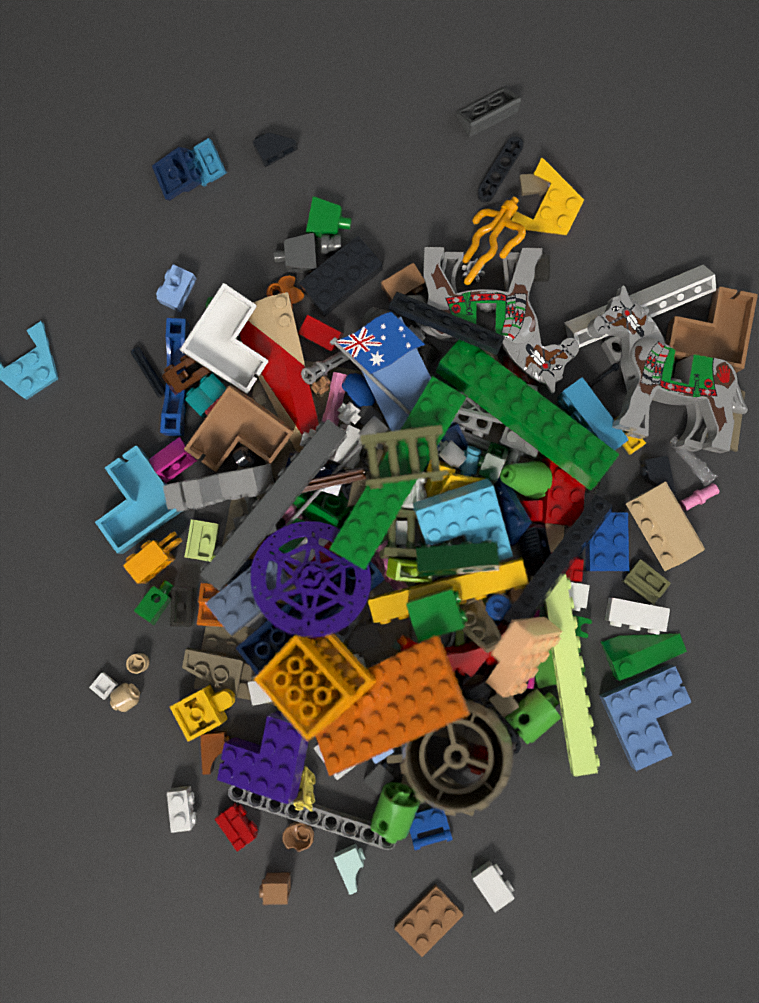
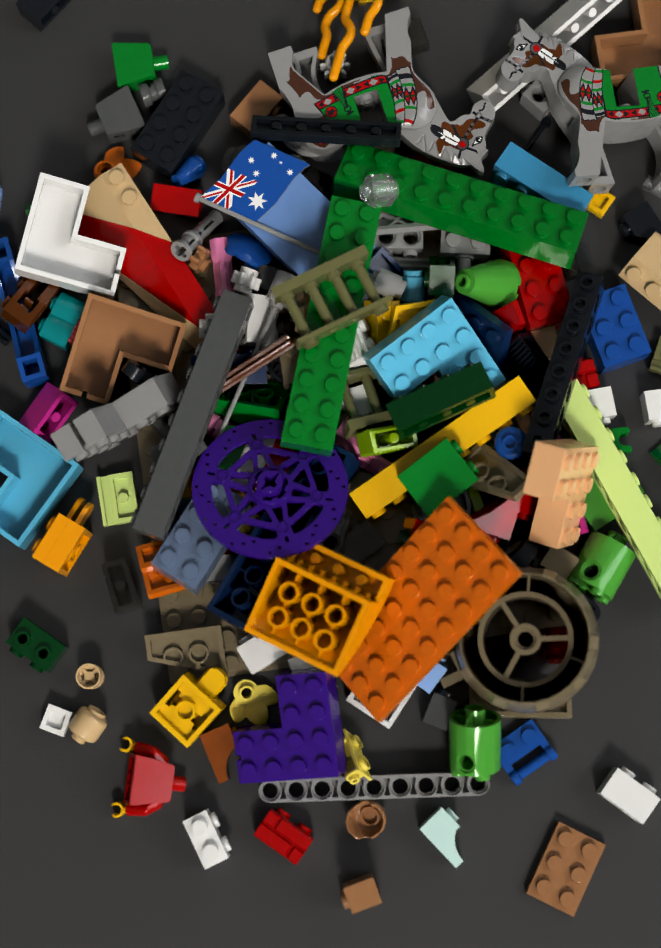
camera: 20 degrees left, 5 degrees down
(107, 627) = (36, 645): none -> dark green brick
(152, 611) = (84, 604): green torso -> none
(153, 753) = (148, 780): none -> red torso
(247, 725) = (254, 705): none -> light yellow plate
(338, 313) = (190, 170): none -> blue cone
(468, 385) = (379, 190): none -> clear head

